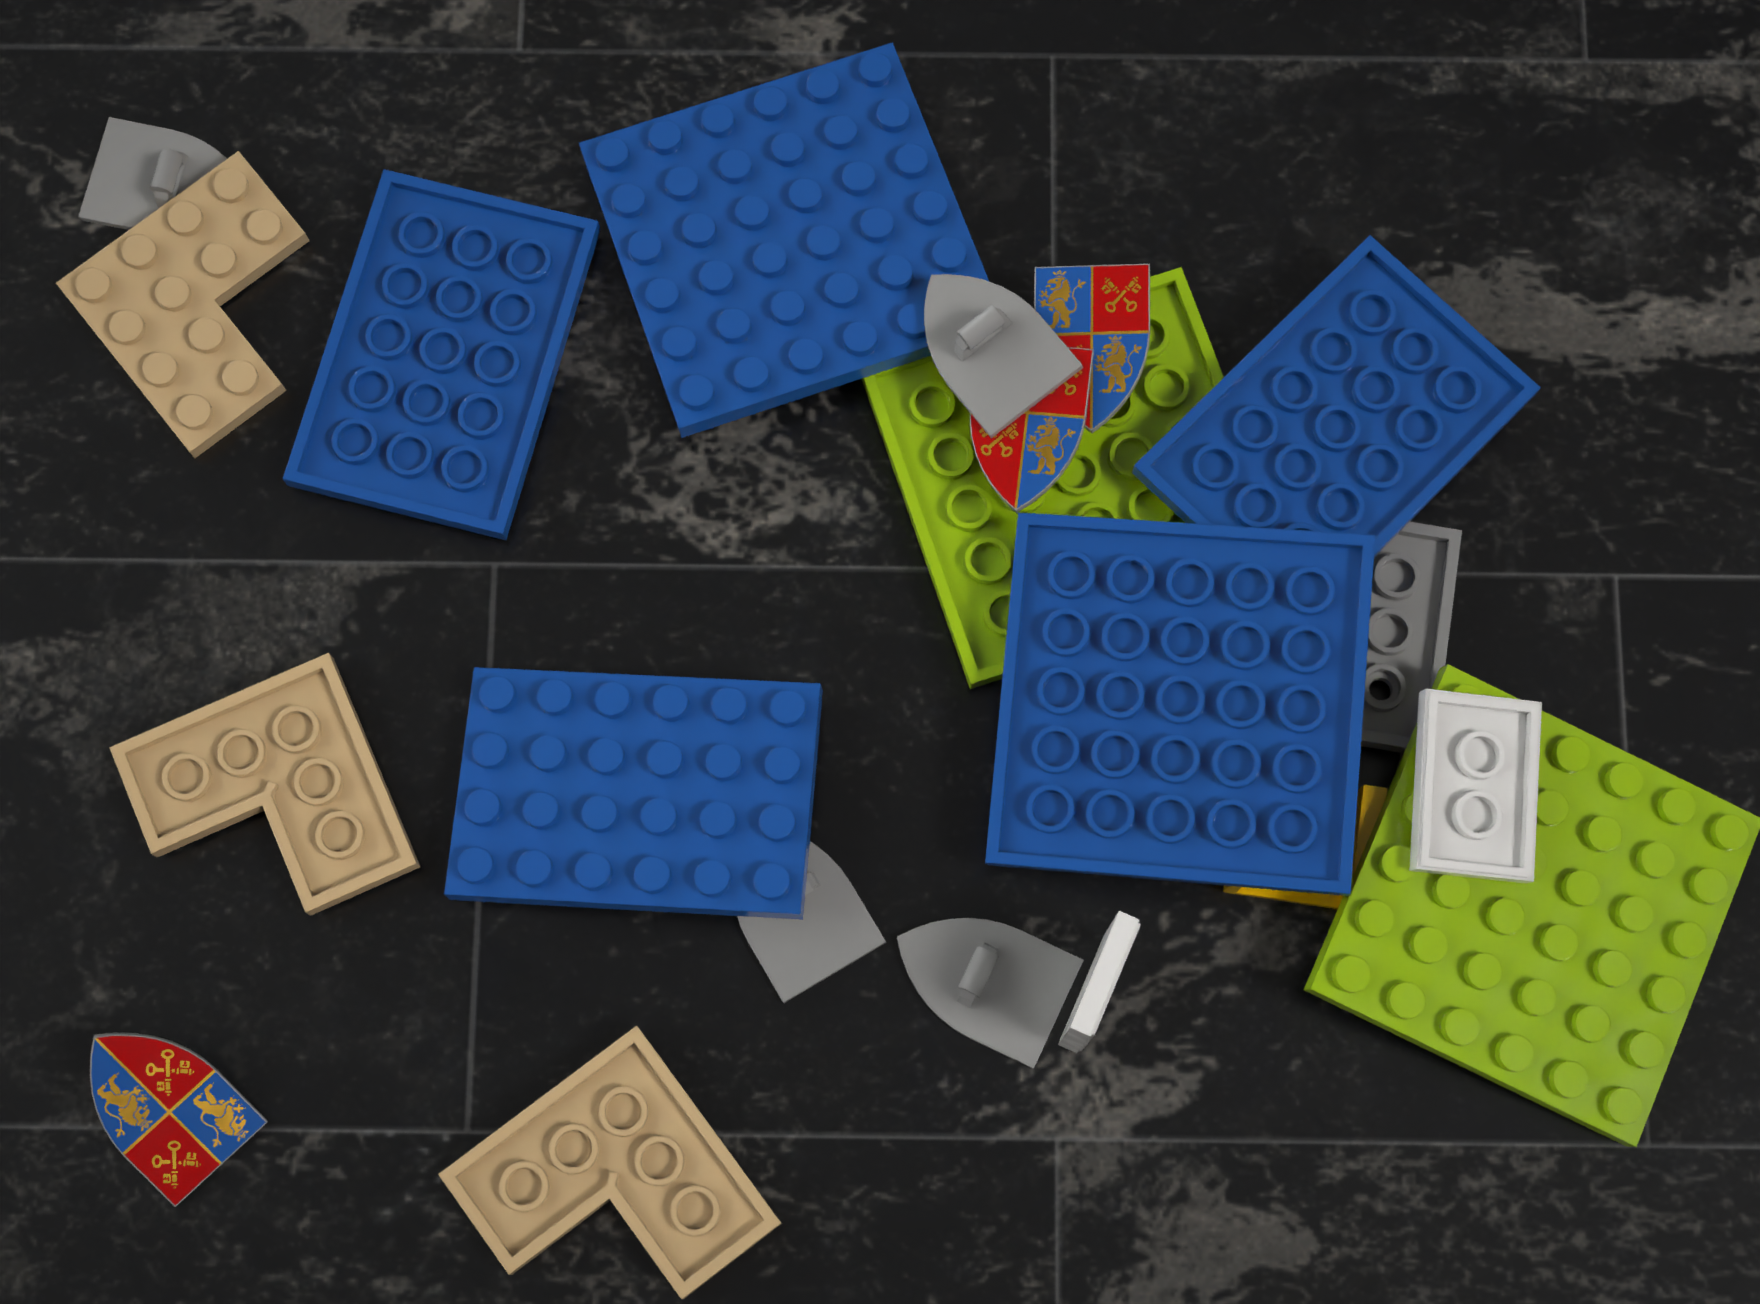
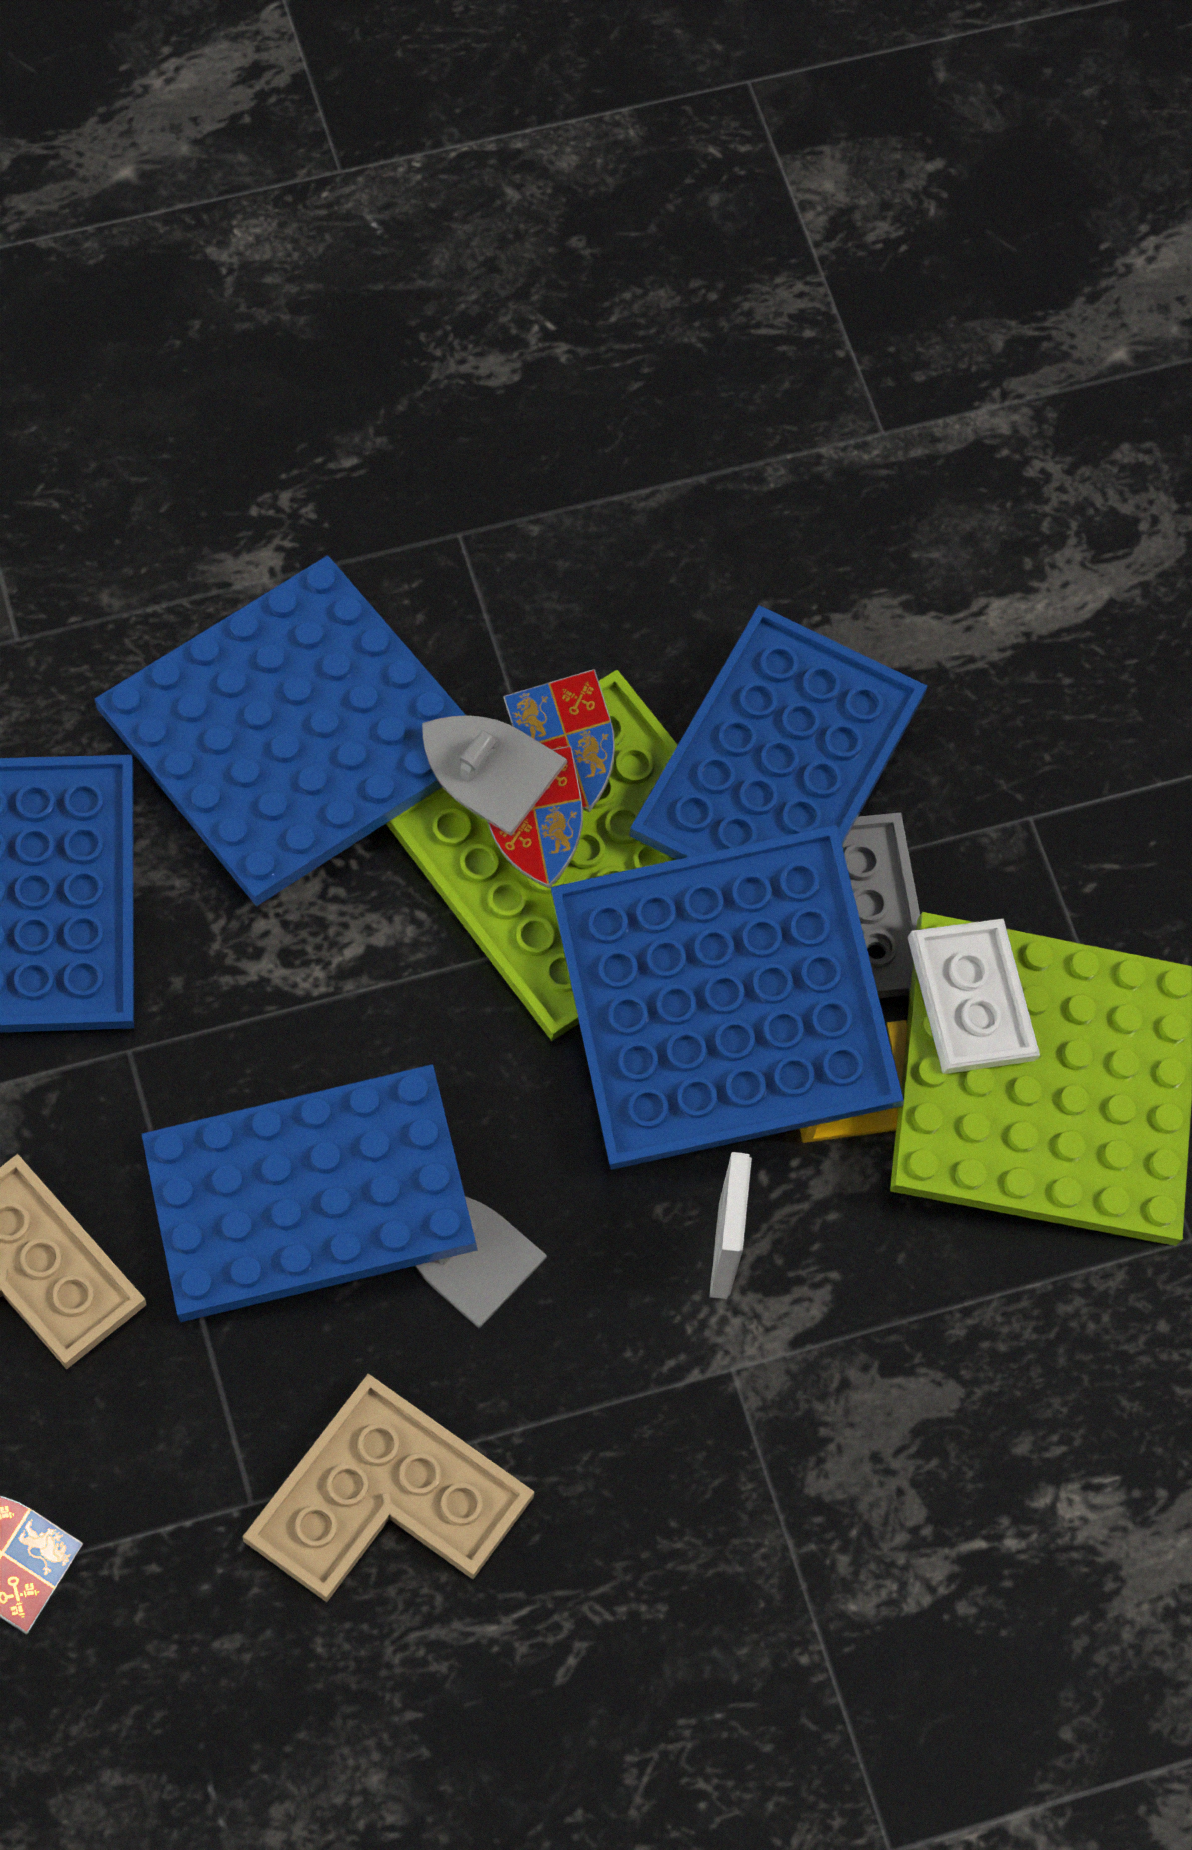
camera: 25 degrees left, 10 degrees down
(990, 982) = (640, 1263): light grey shield -> none

